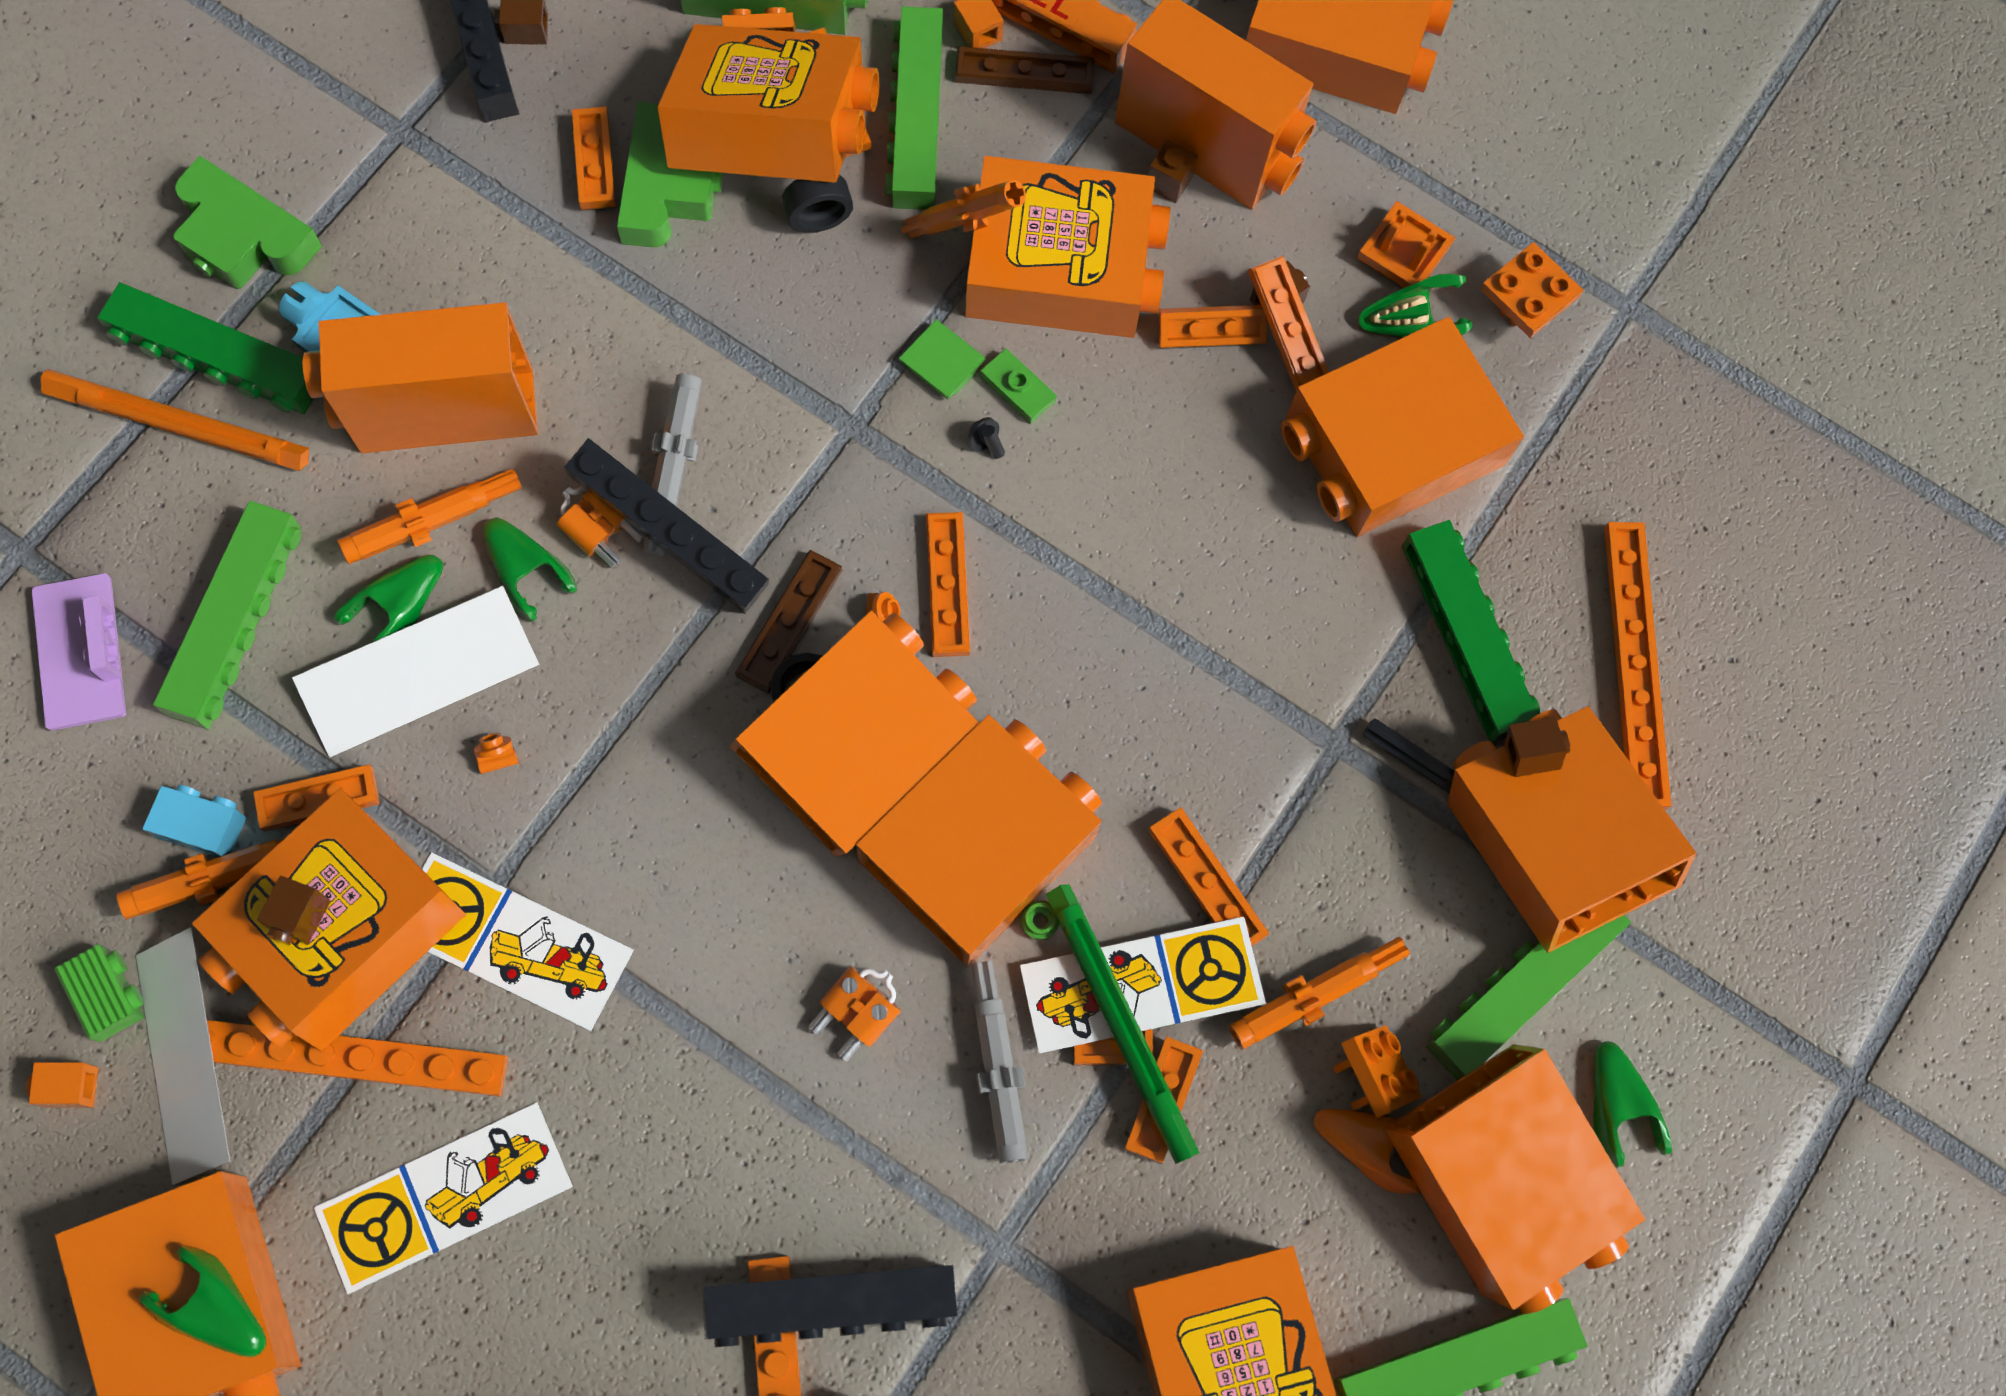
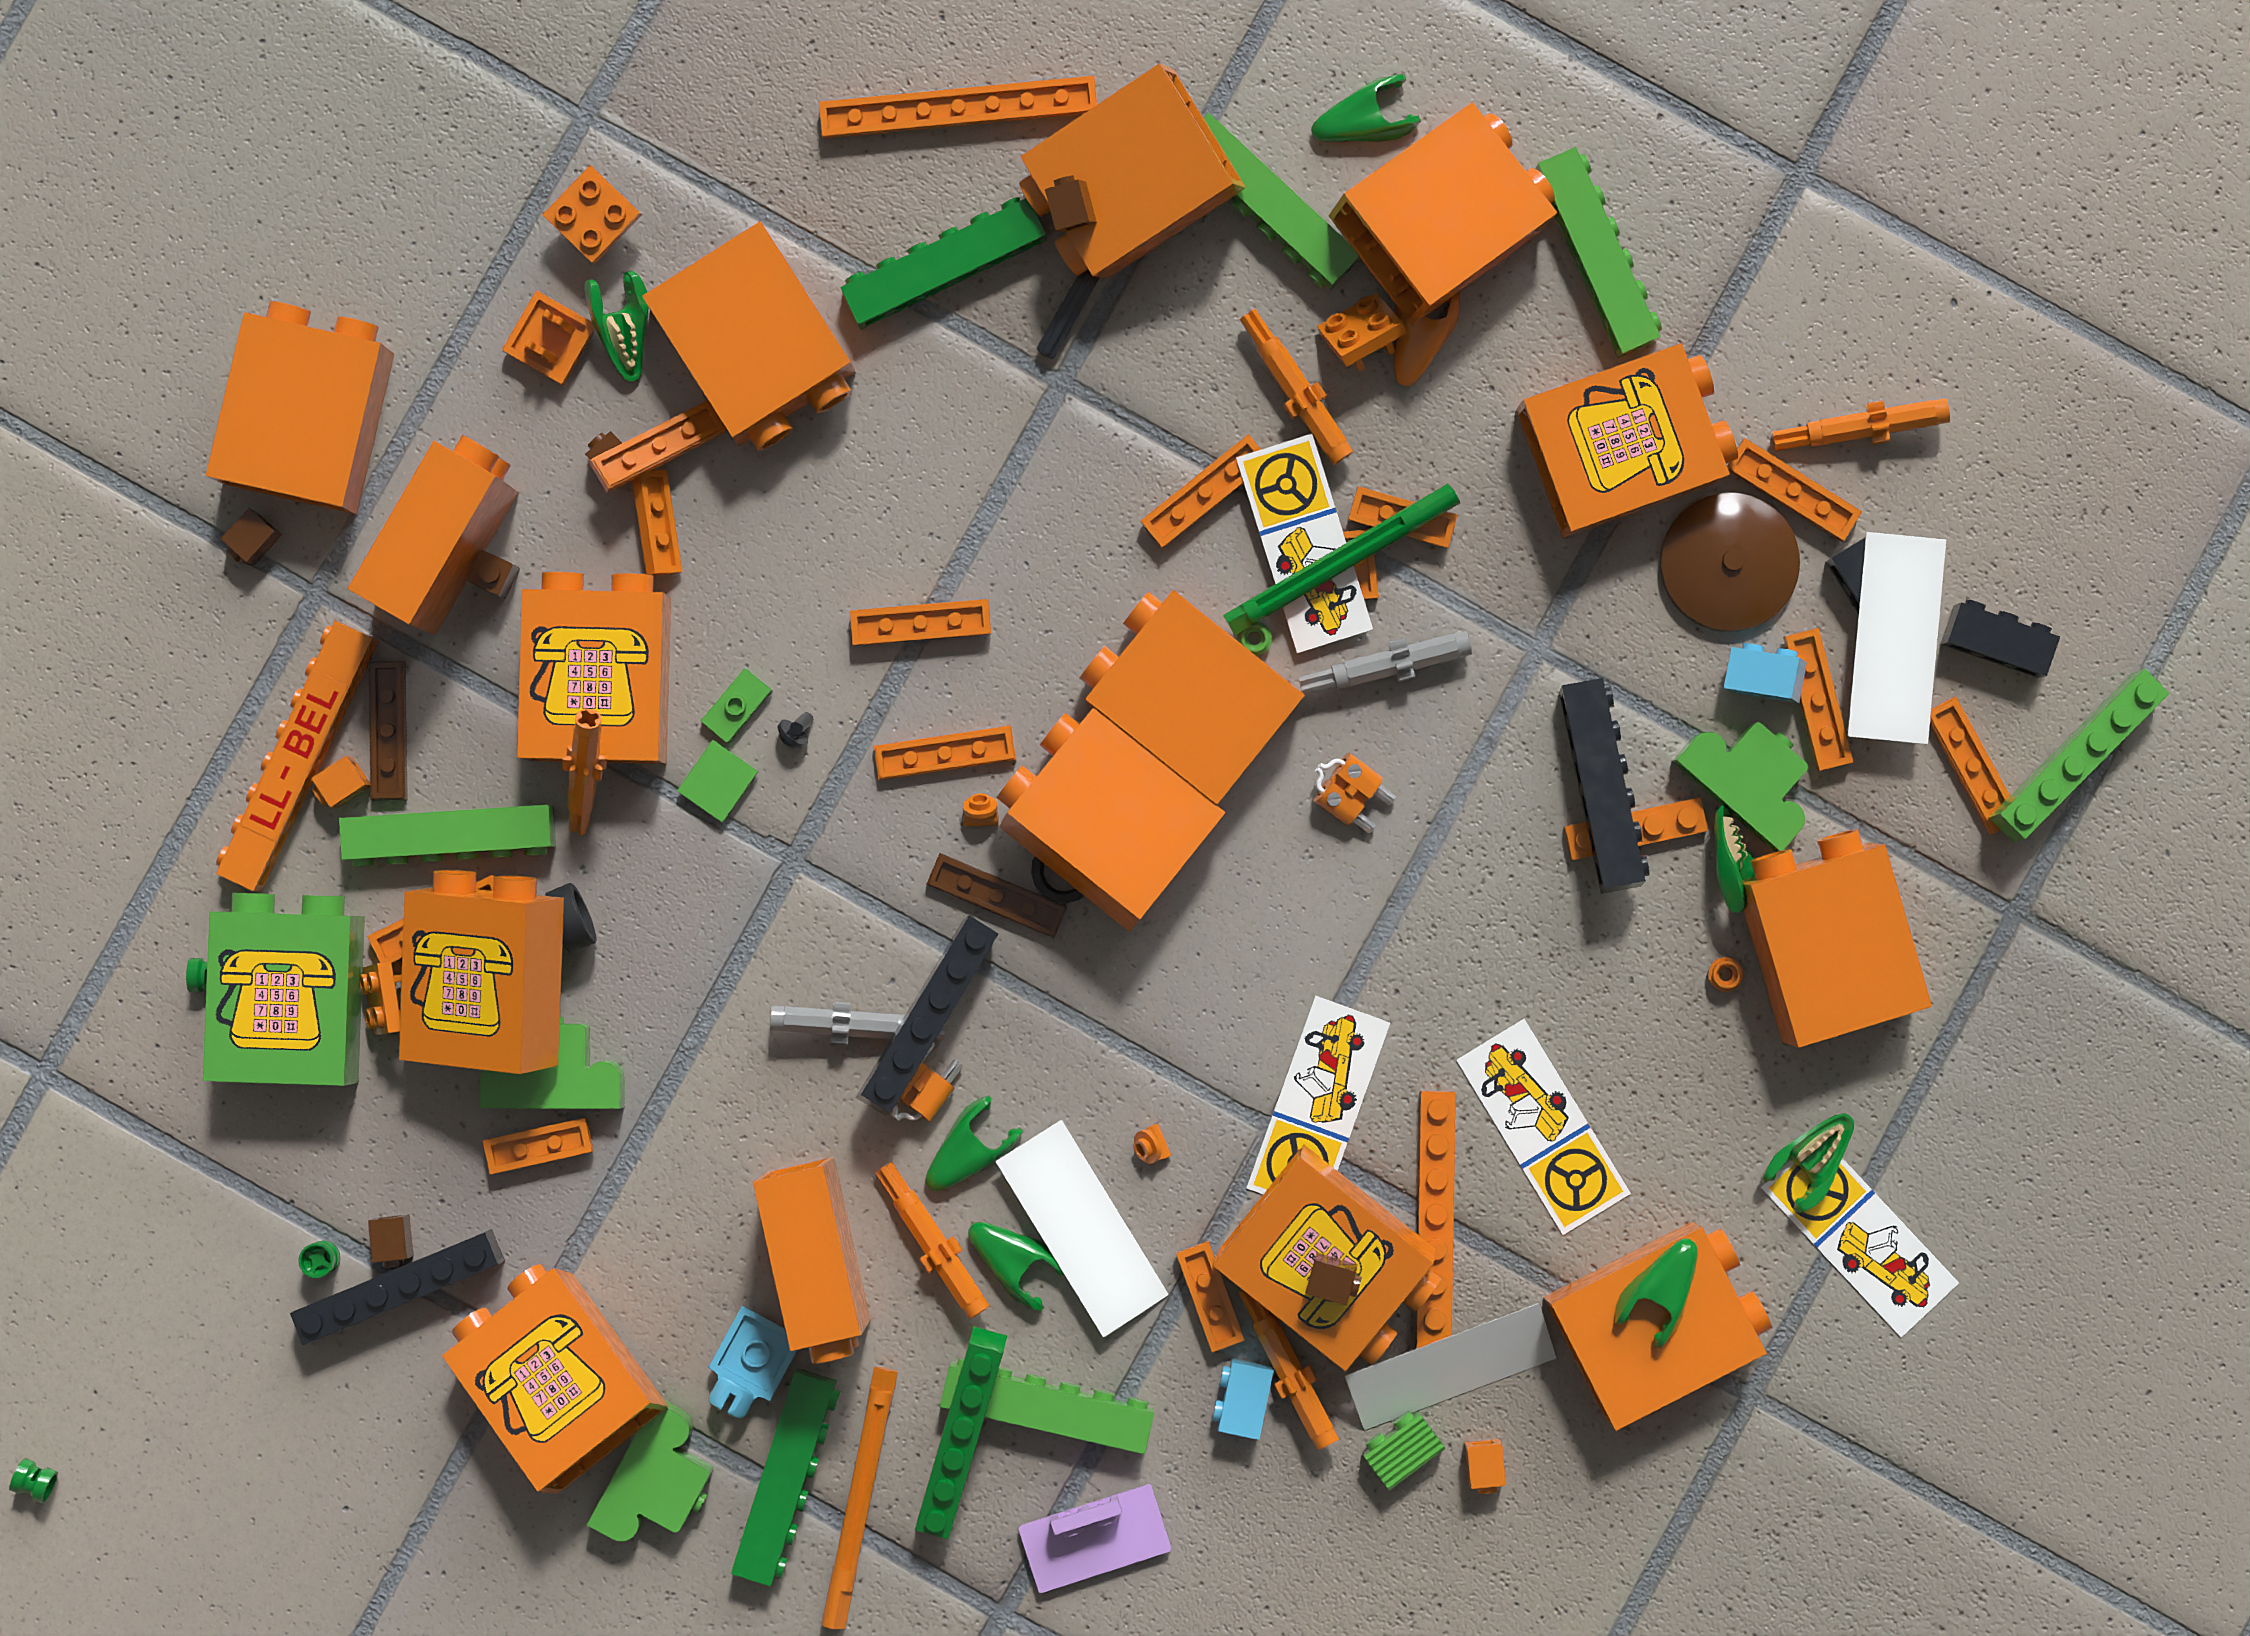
camera: 90 degrees left, 15 degrees up
(215, 513) = (961, 1432): none -> green brick
(350, 133) = (552, 1378): none -> orange brick
(1088, 571) = (920, 622): none -> orange plate

